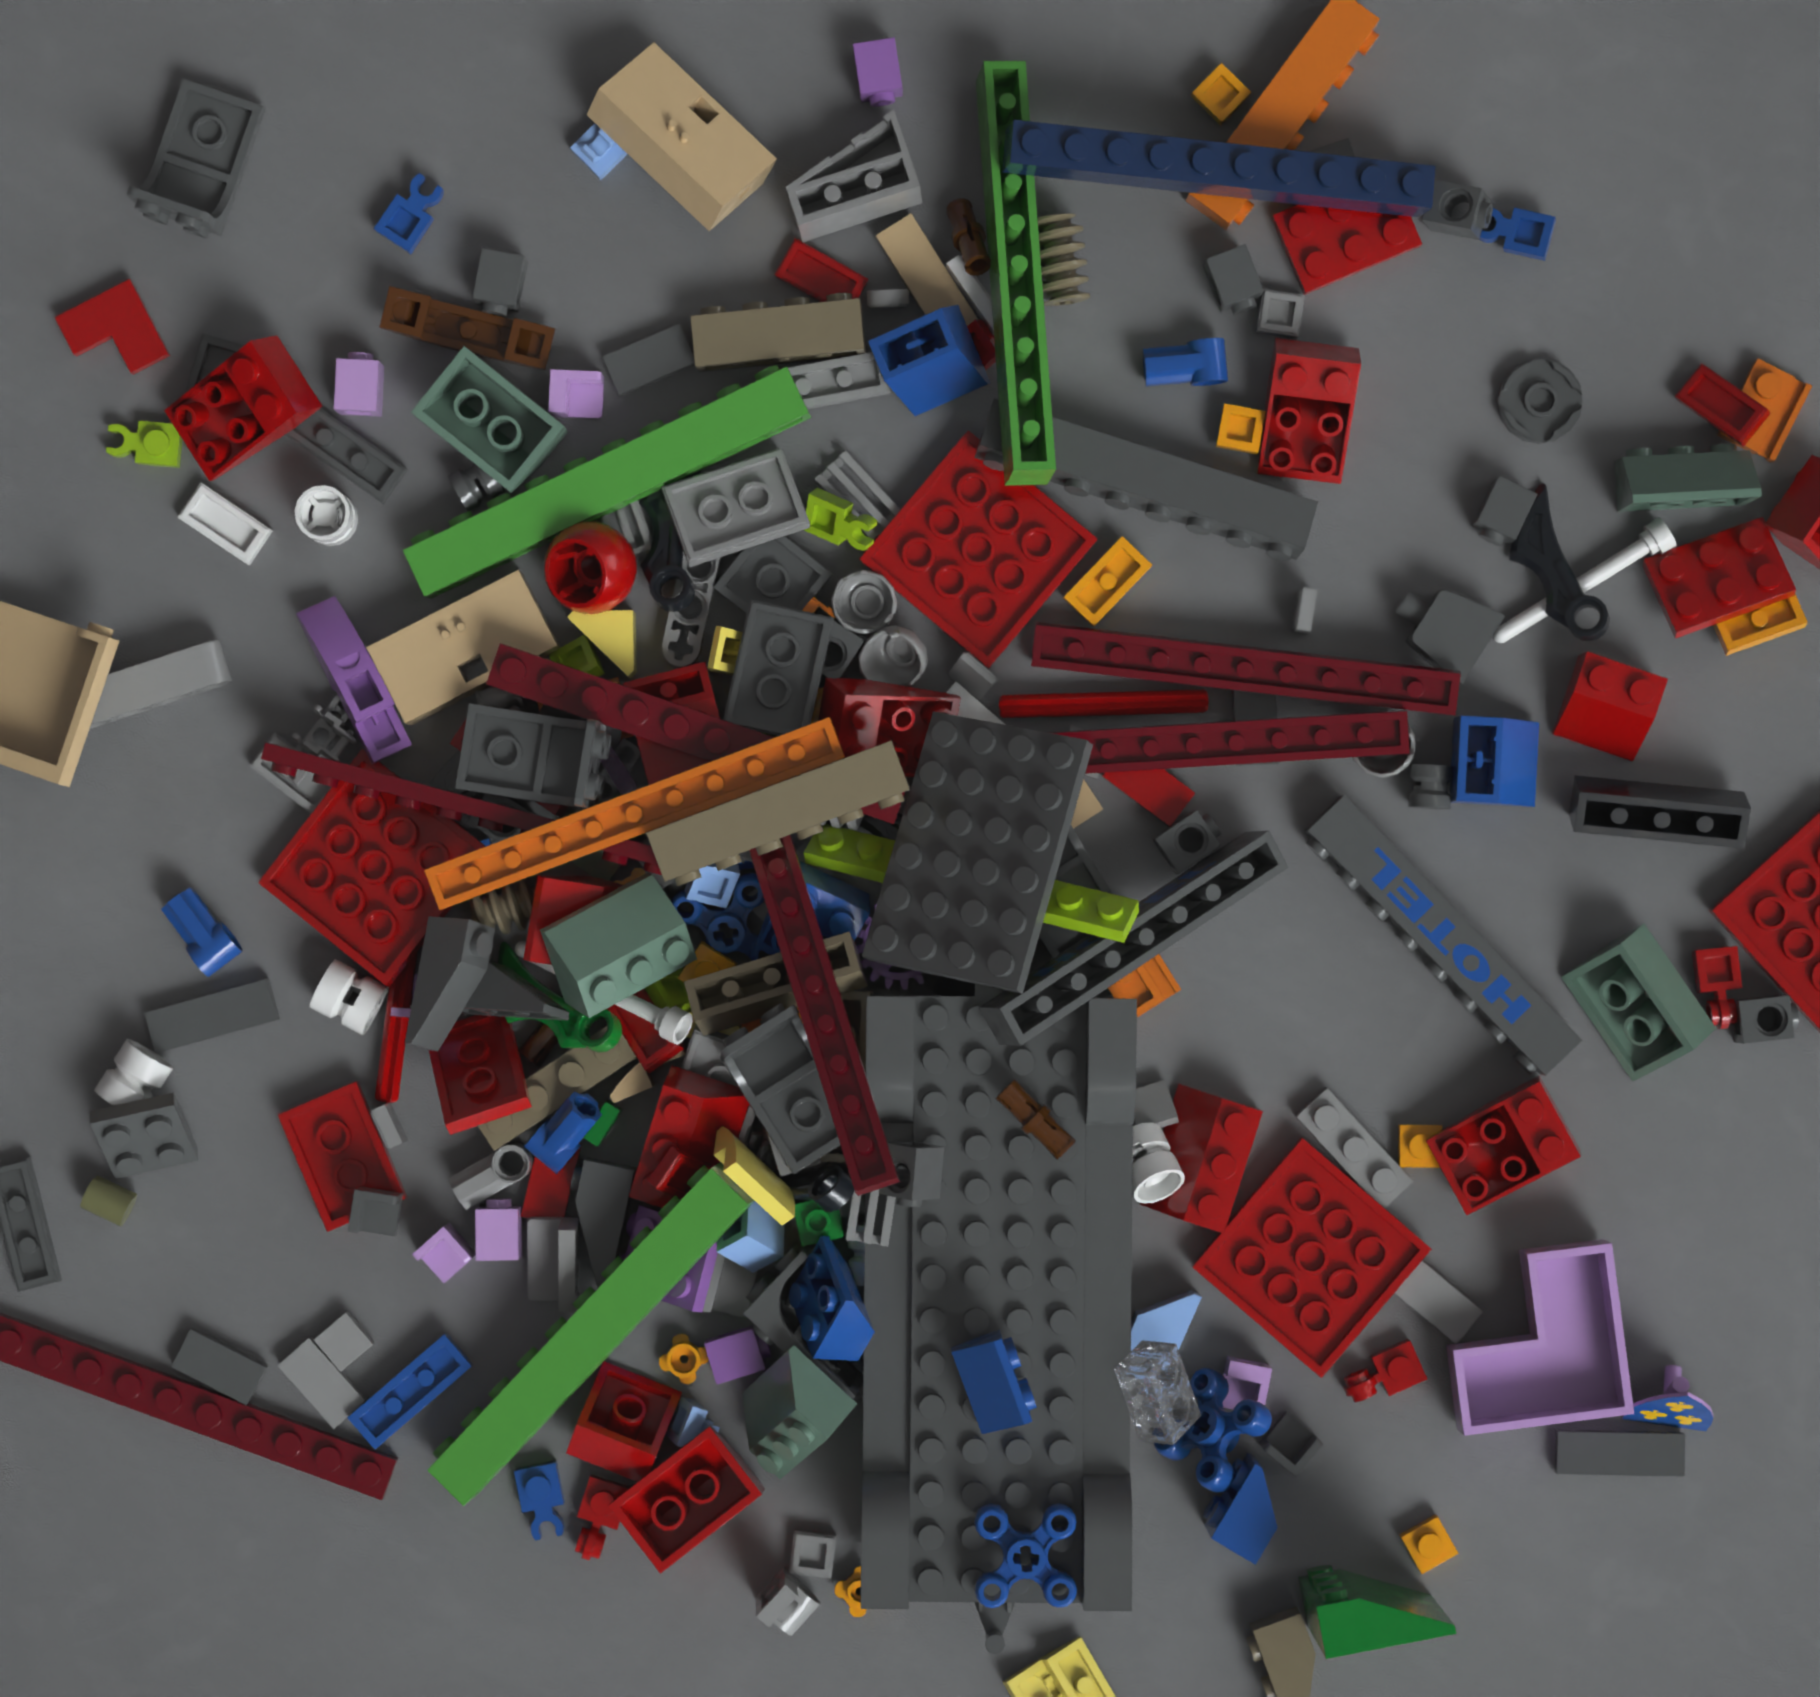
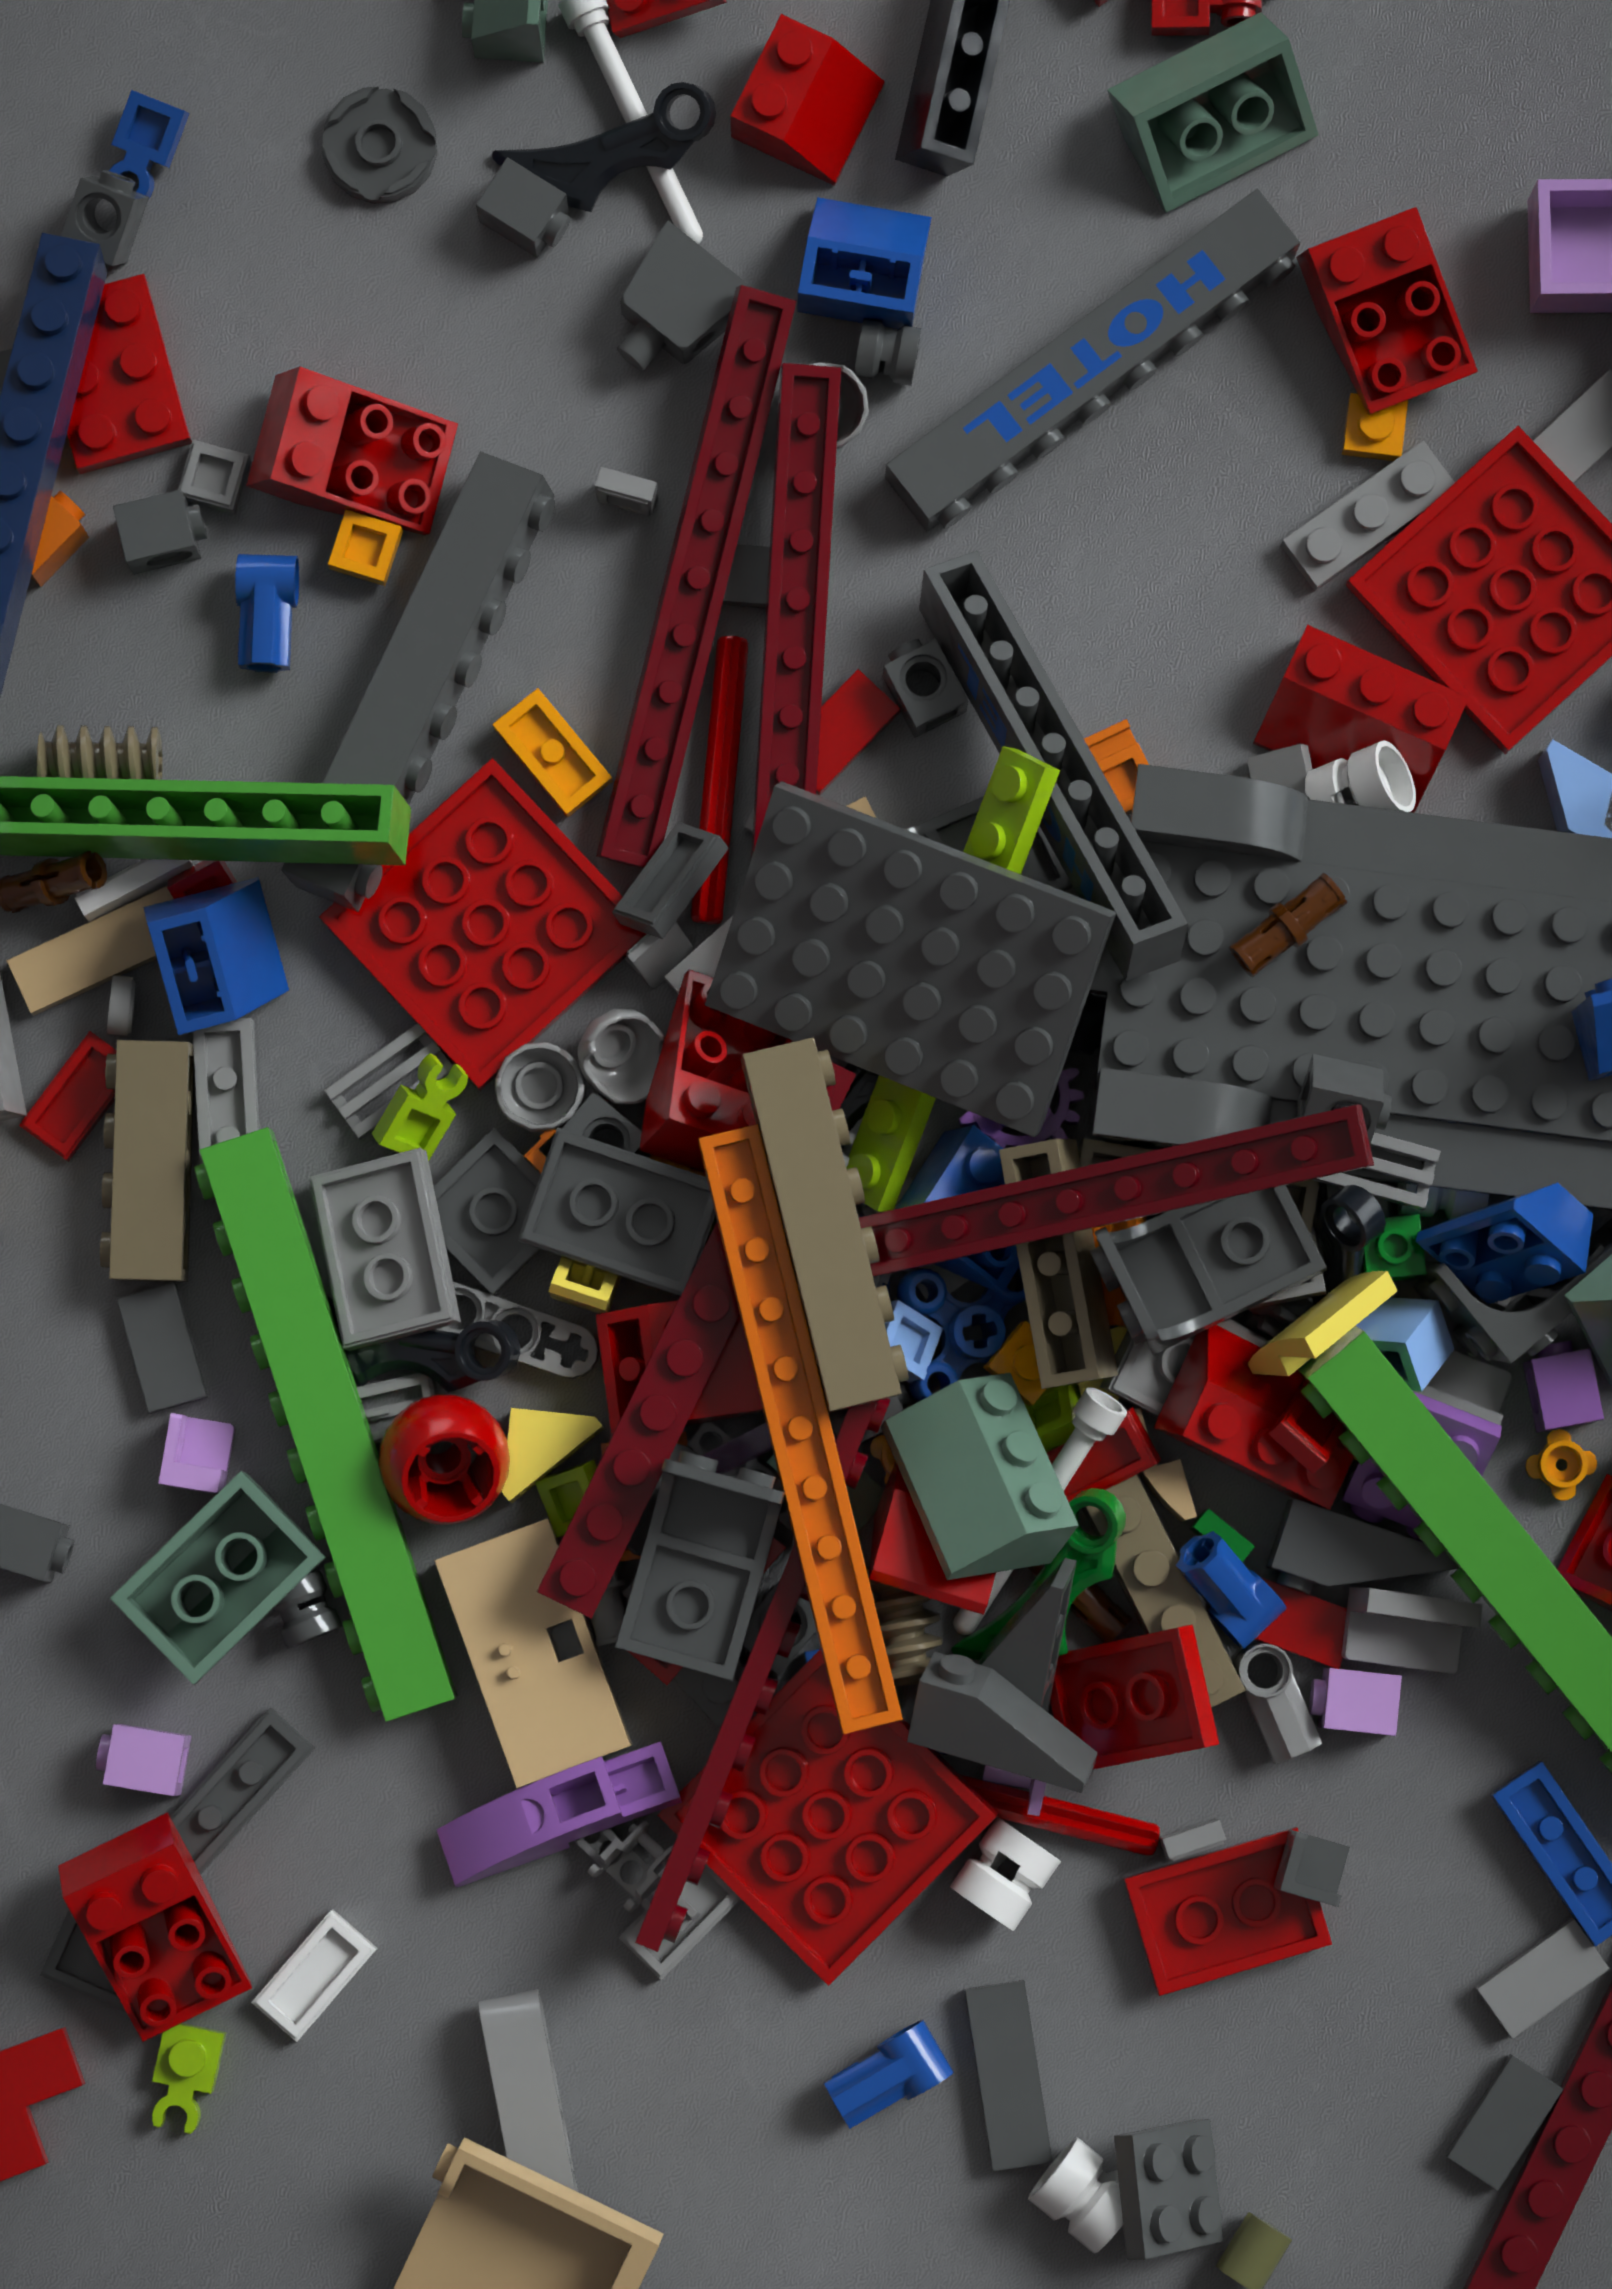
camera: 85 degrees left, 5 degrees down
(326, 515) = (322, 1826): white wheel -> none
(344, 1341) = (1487, 1940): light grey tile -> none
(445, 1252) = (1378, 1781): lavender panel -> none
(456, 326) = (82, 1604): reddish brown slope -> none
(1023, 676) = (670, 880): none -> dark grey tile

